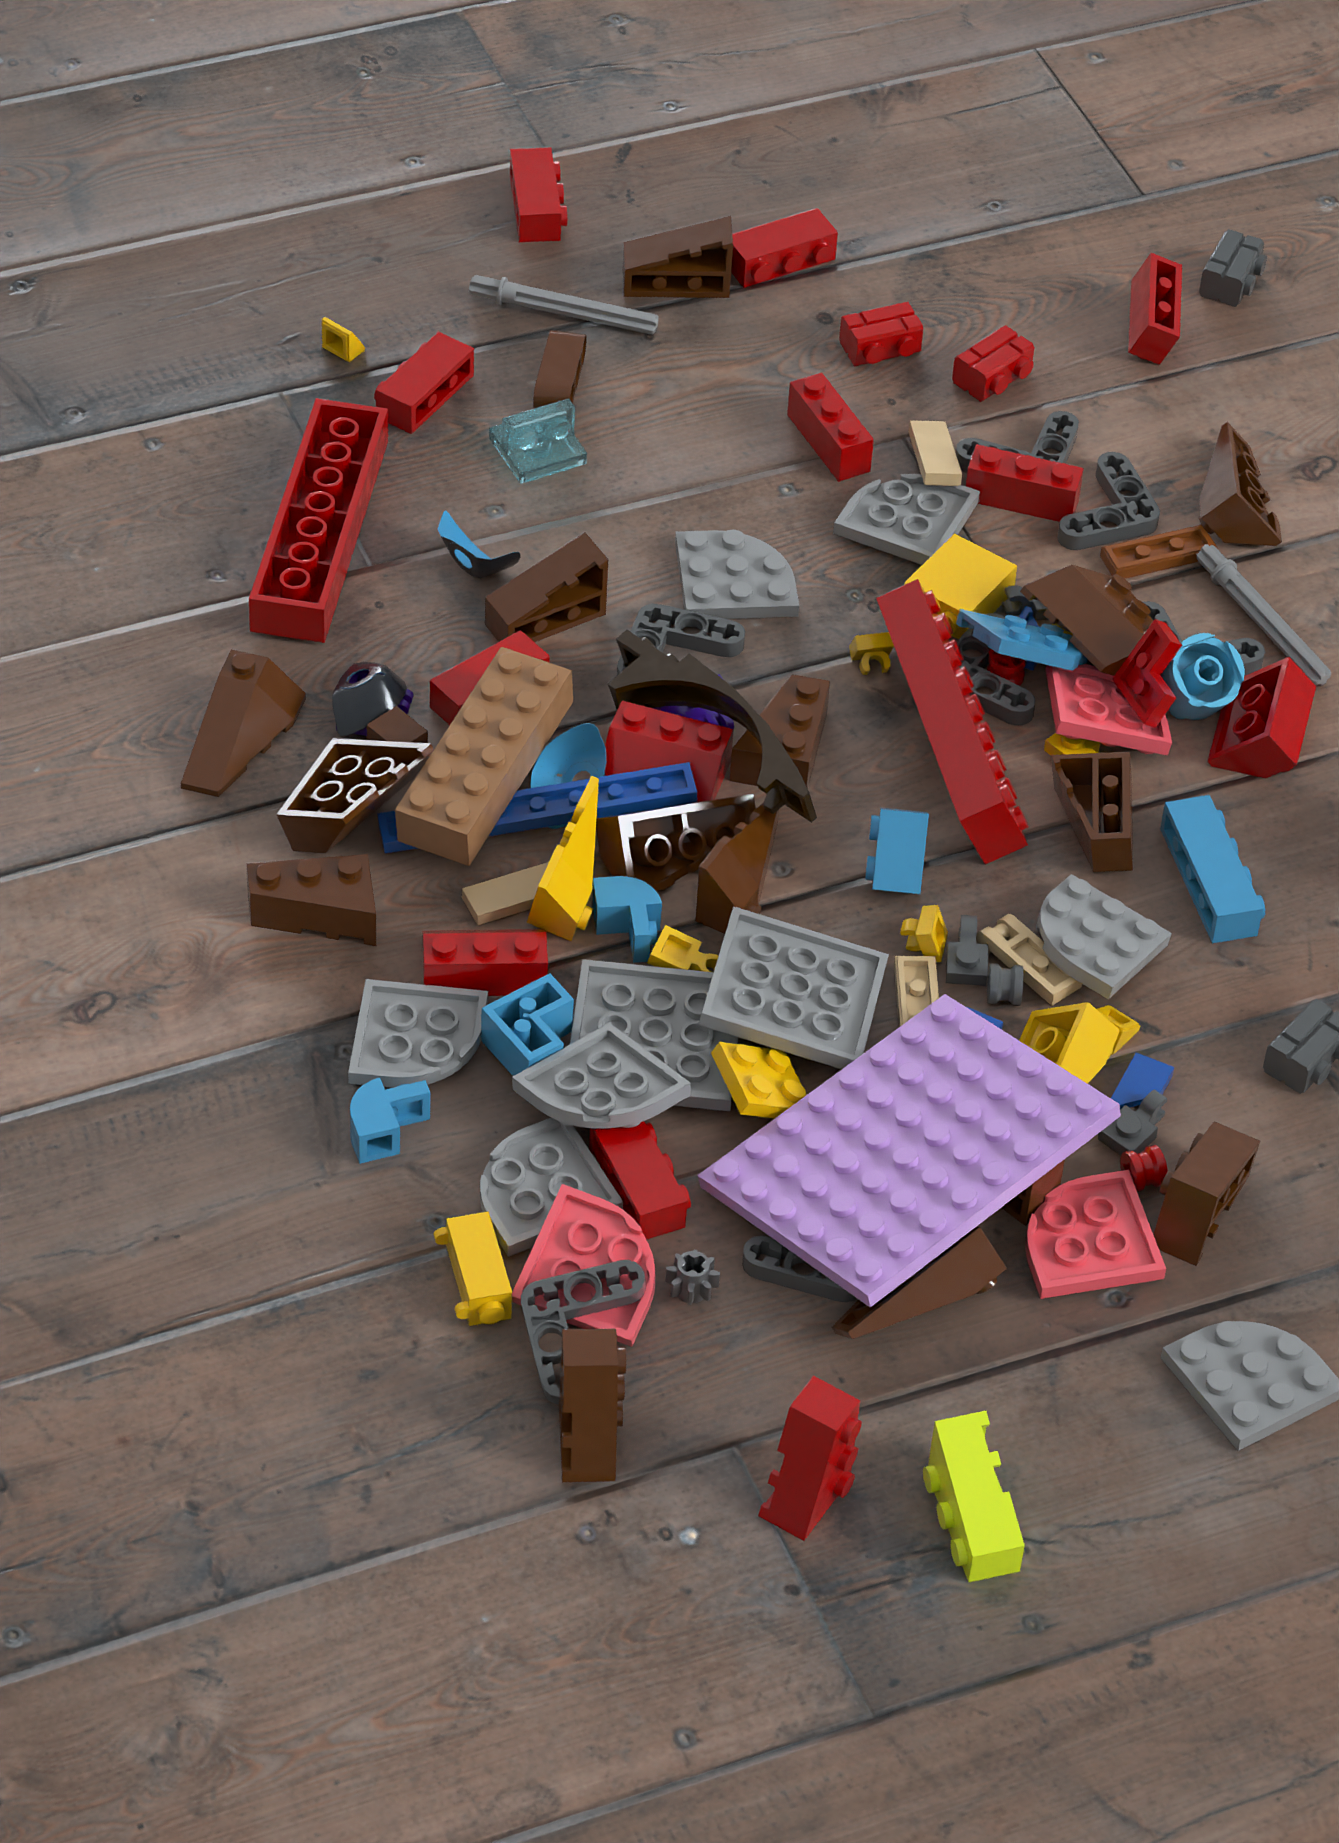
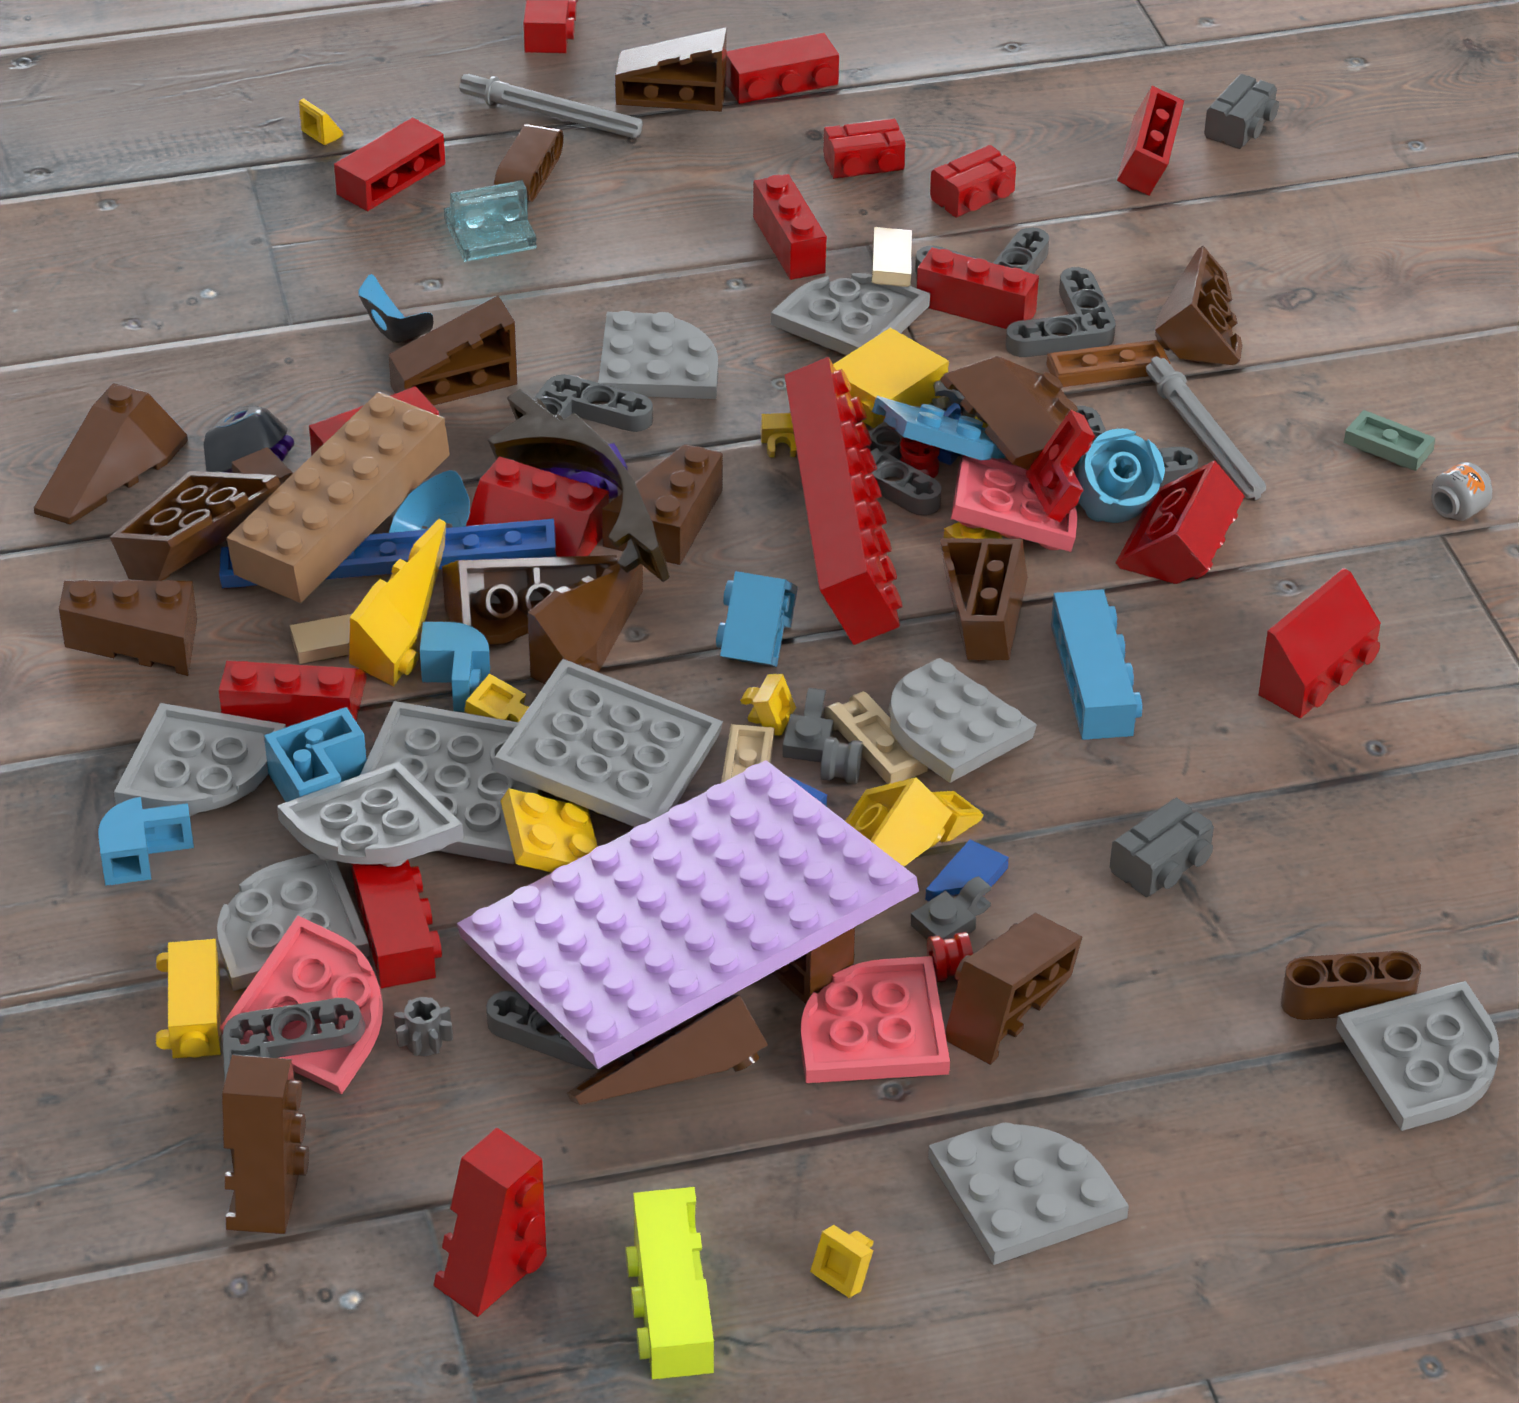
camera: 10 degrees right, 5 degrees down
(318, 521) = (242, 277): red brick -> none
(1113, 1460) = (842, 1259): none -> yellow tile

